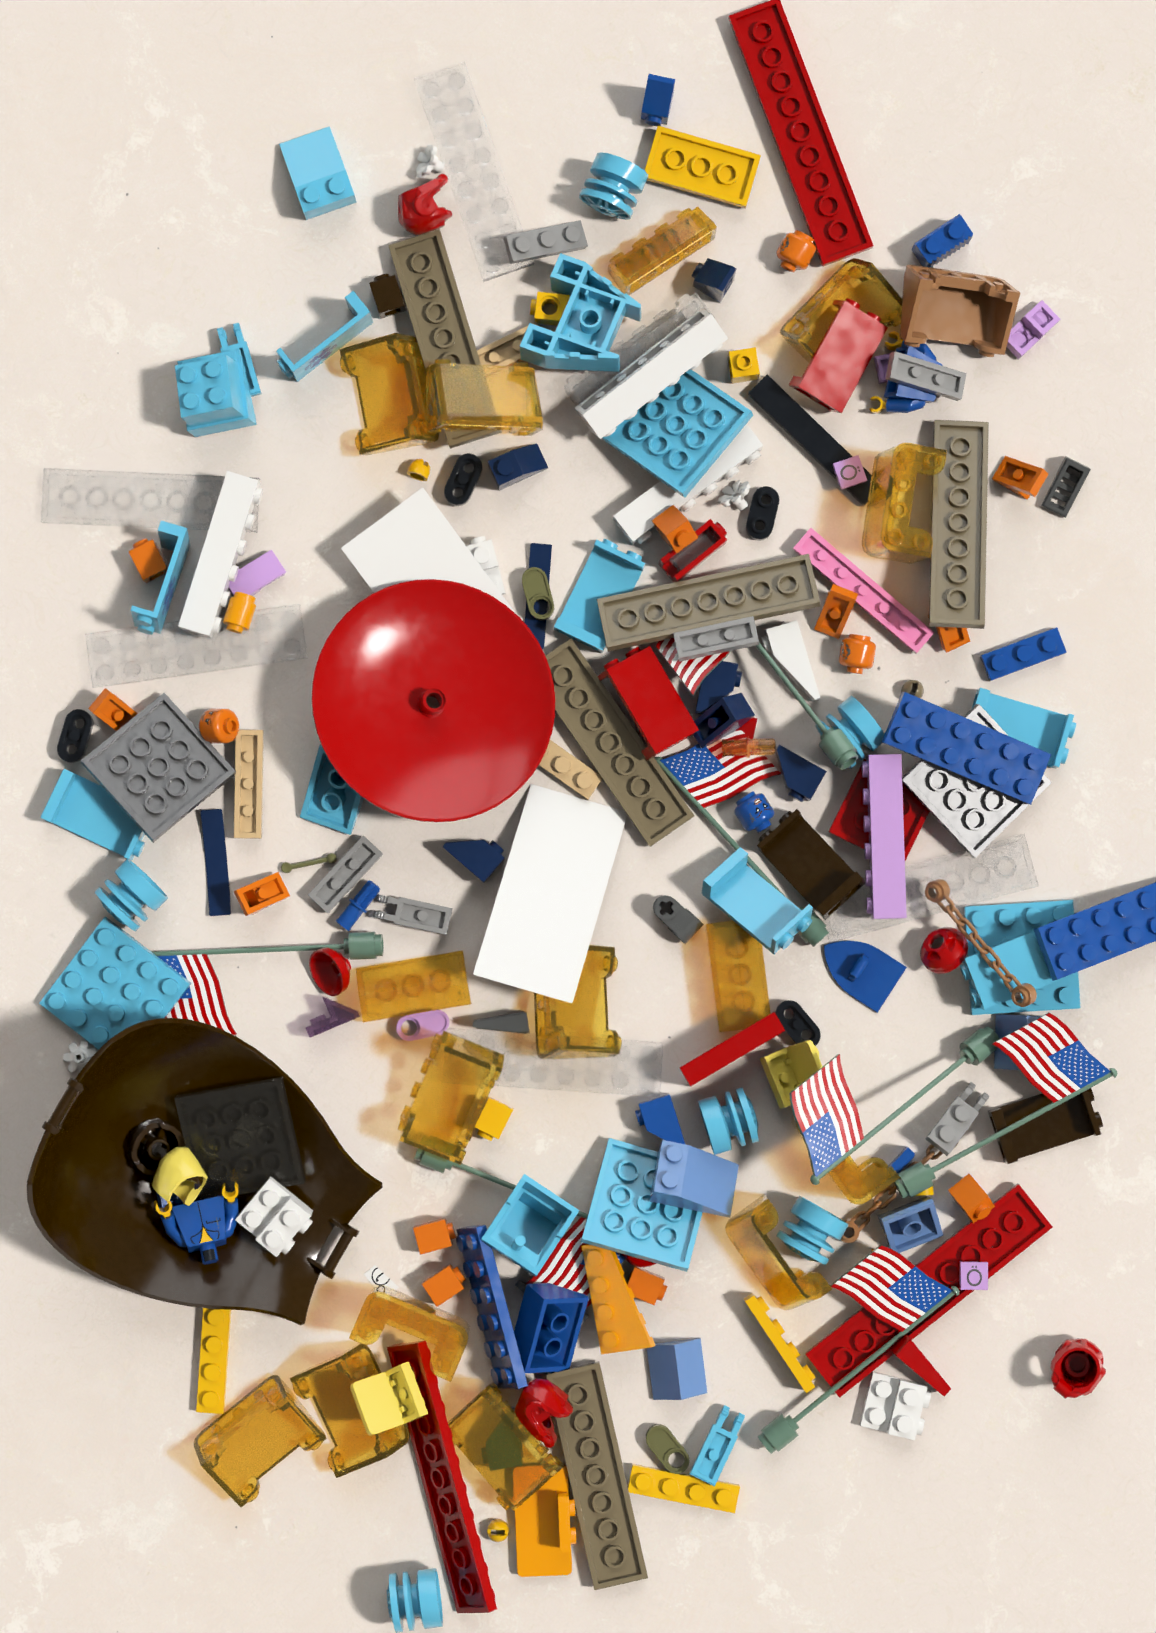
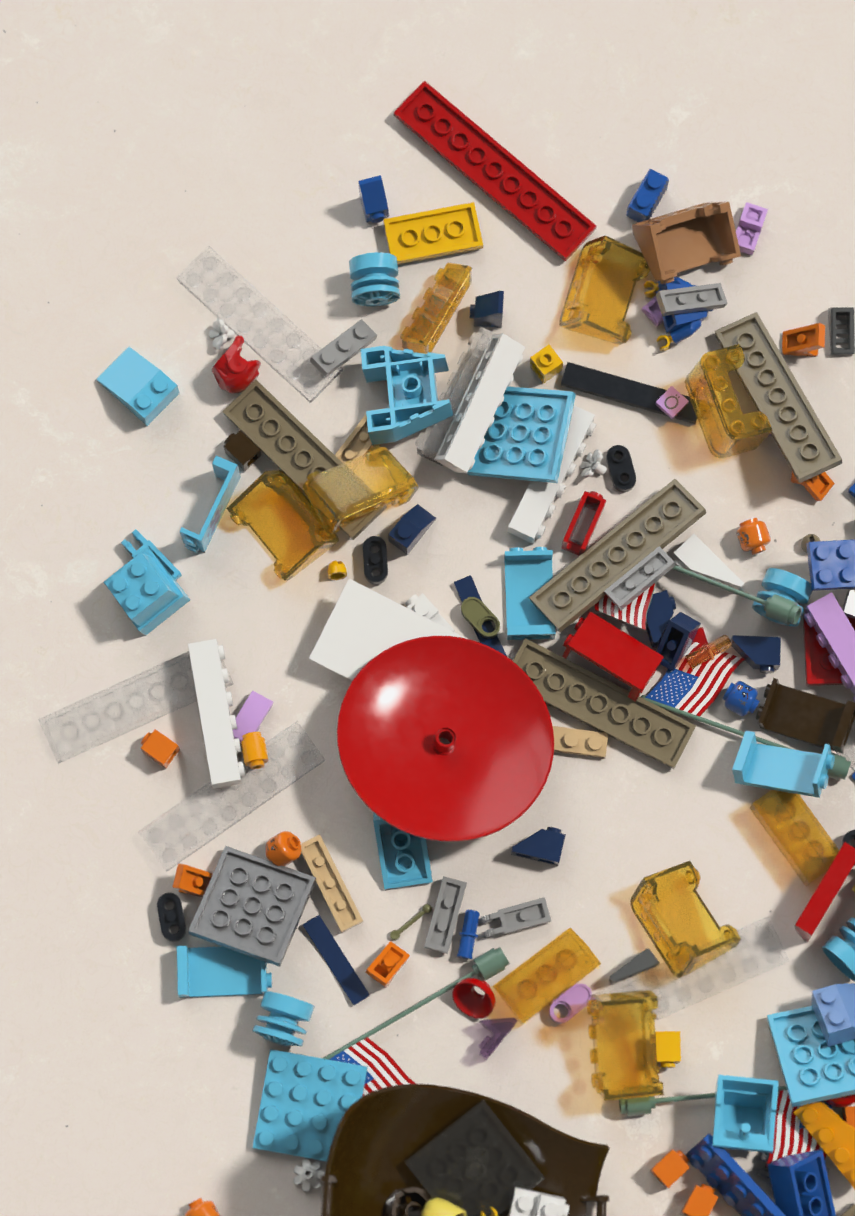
camera: 25 degrees left, 10 degrees down
(177, 540) = (171, 721): medium azure panel -> none
(543, 298) = (379, 387): yellow brick -> none
(550, 893) = (618, 843): white sticker -> none
(660, 1118) = (799, 977): blue slope -> none
(675, 529) = (562, 511): orange brick -> none
(679, 921) = (729, 813): dark grey piece -> none
(796, 251) = (540, 259): orange head -> none
(835, 611) = (719, 512): orange slope -> none
(841, 356) = (618, 319): panel -> none
(870, 595) = (733, 486): bright pink plate -> none

